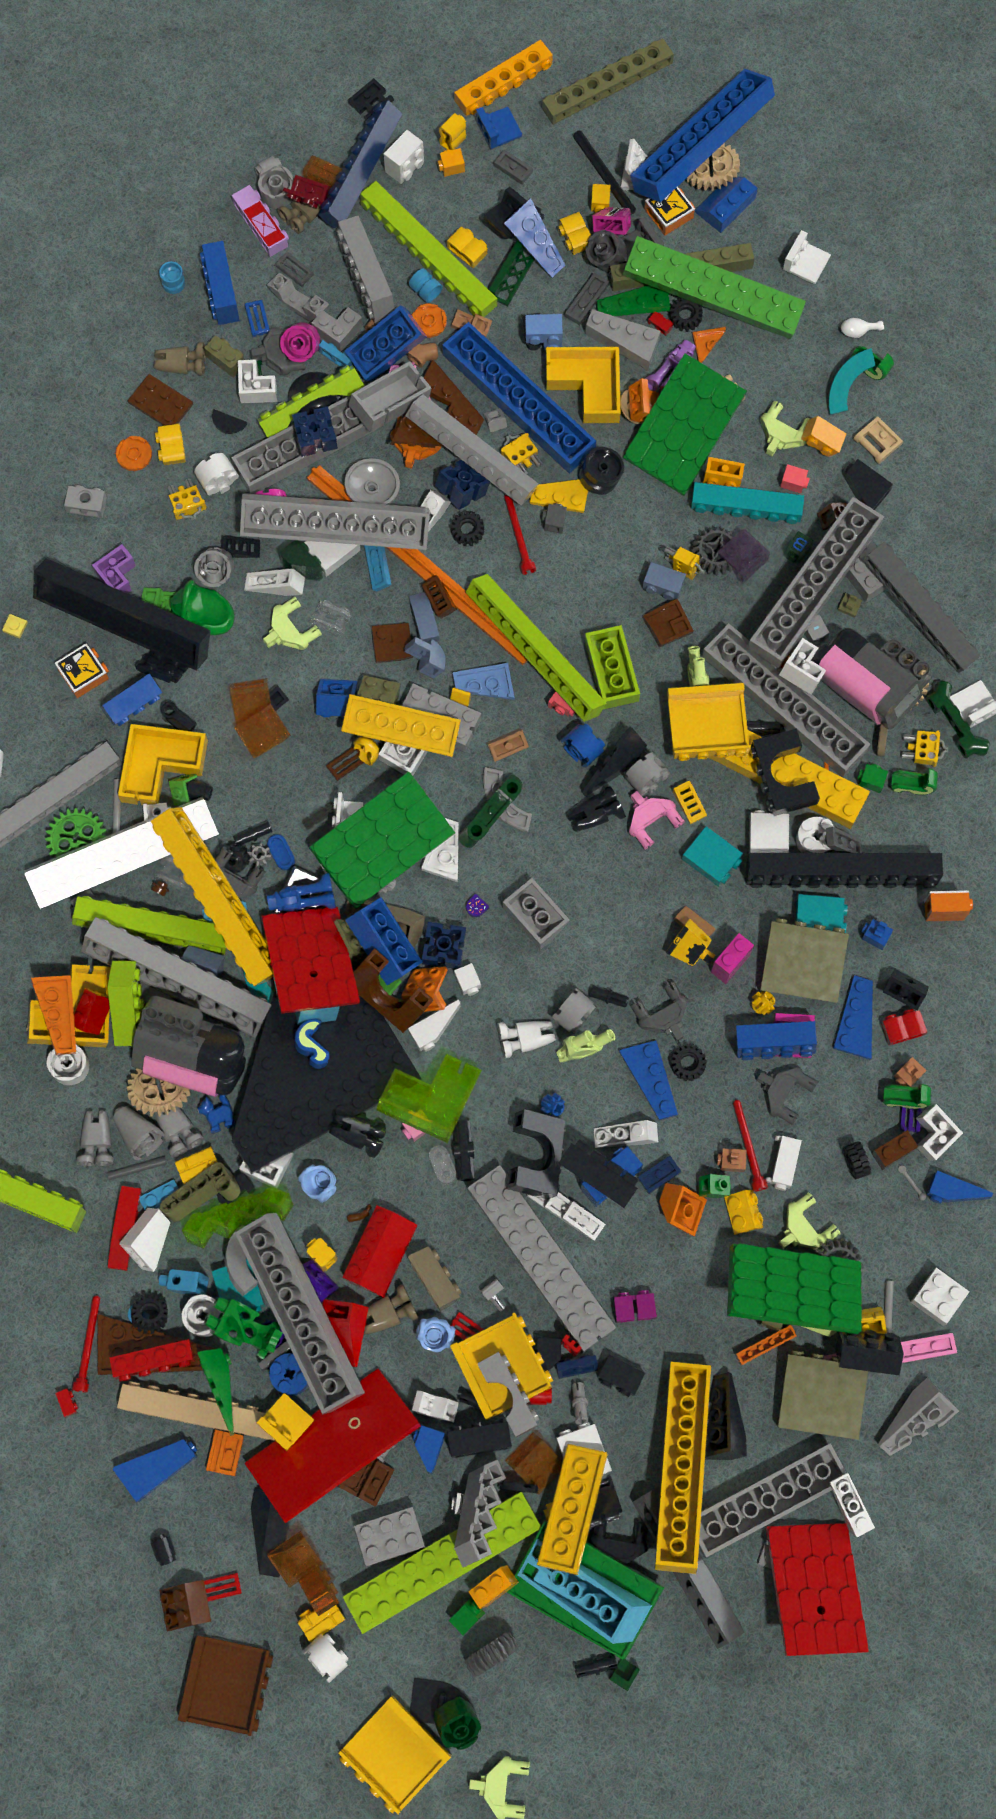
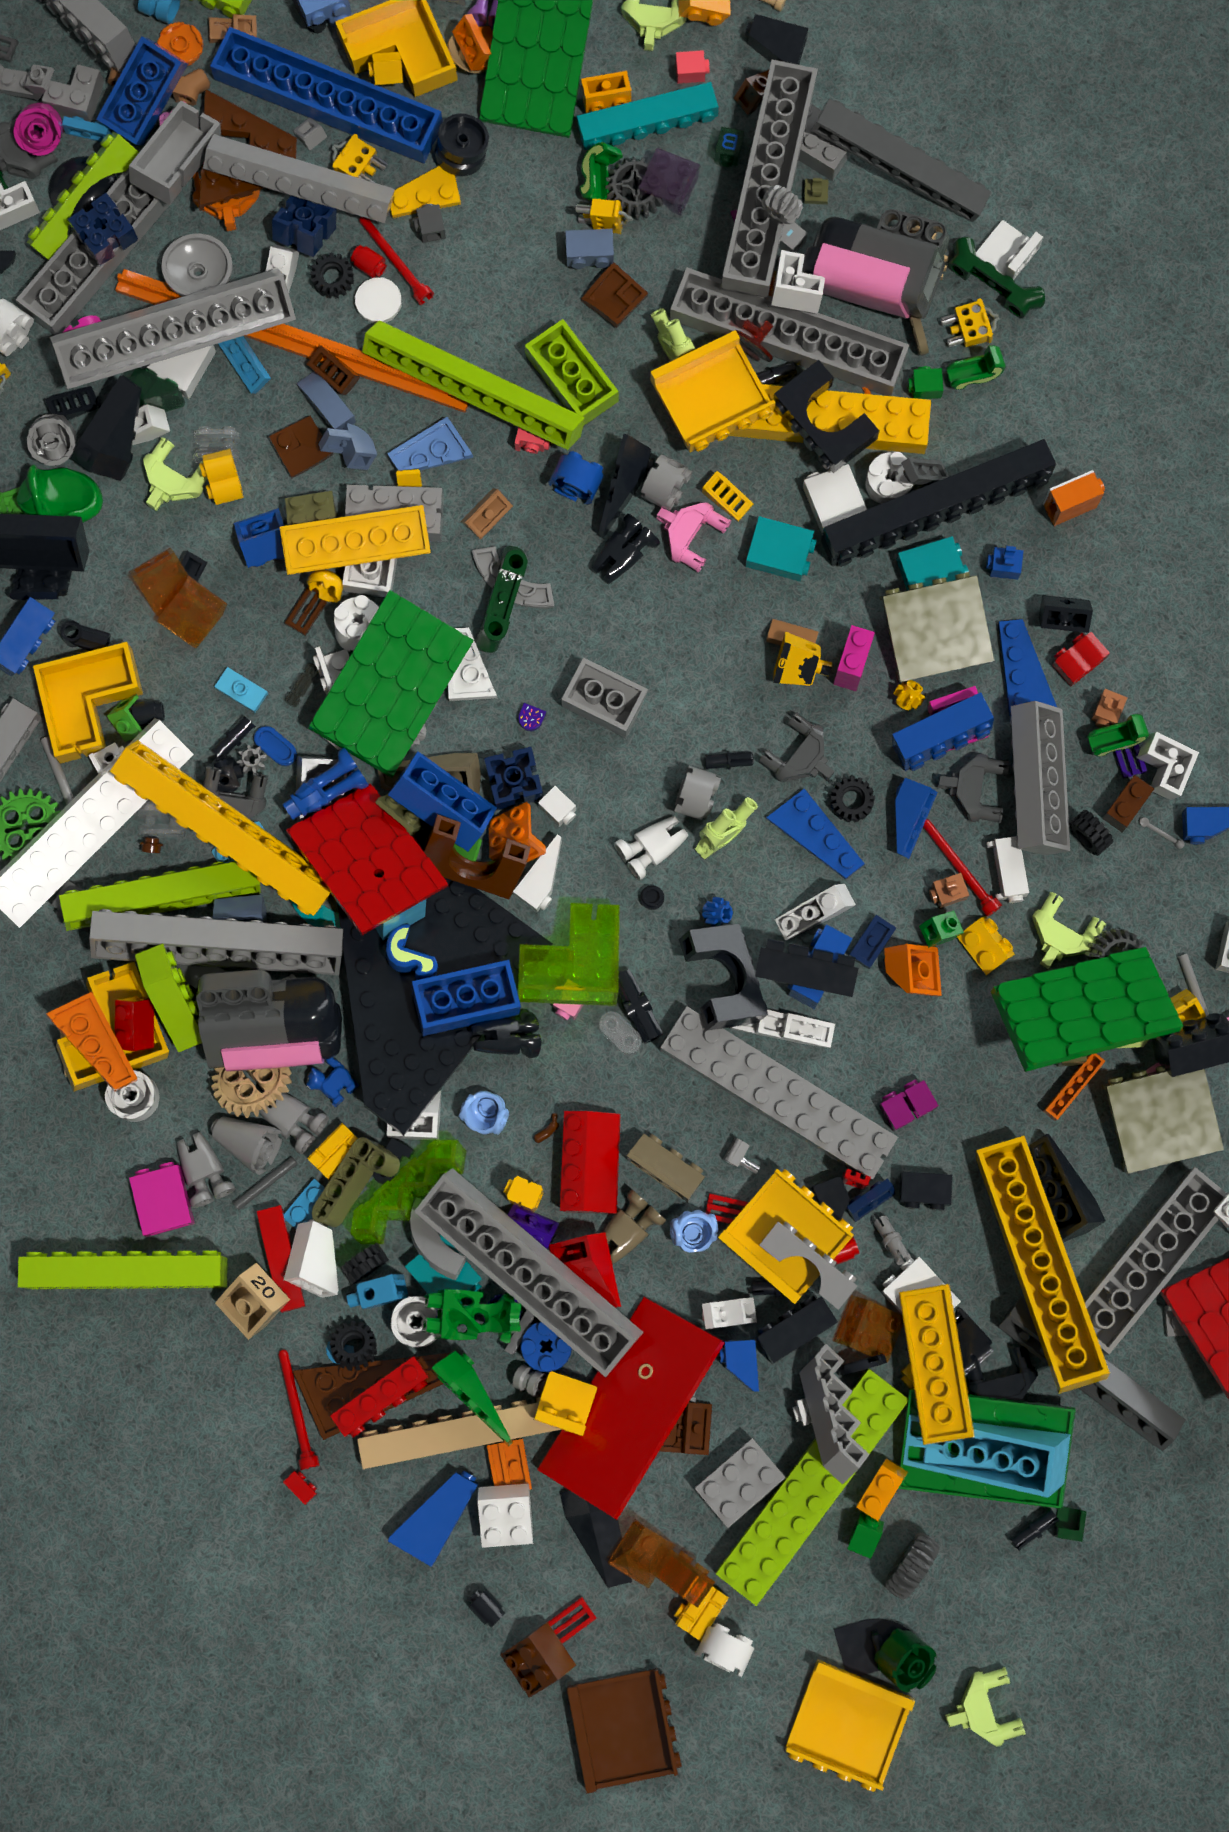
camera: 20 degrees left, 5 degrees up
(57, 1148) = (161, 1199): none -> dark pink brick
(90, 1250) = (252, 1301): none -> tan brick
(183, 1256) = (364, 1263): none -> black tyre
(206, 1486) = (505, 1515): none -> white brick
(255, 582) = (109, 437): none -> black wedge
(265, 1392) = (529, 1380): none -> light grey wheel
(273, 801) = (241, 689): none -> medium azure plate
(325, 642) = (222, 477): none -> yellow brick
(339, 1091) = (465, 997): none -> blue brick
(374, 782) = (352, 620): none -> white brick
(493, 559) = (378, 300): none -> white tile
(498, 528) = (368, 261): none -> red brick
(509, 1075) = (652, 897): none -> black plate
(569, 394) = (386, 68): none -> yellow brick
(692, 526) = (595, 170): none -> green animal
(730, 1088) = (912, 809): none -> blue slope
(761, 693) = (753, 344): none -> clear red shield
(814, 605) = (782, 204): none -> light grey gear
(835, 1104) = (1040, 778): none -> light grey brick

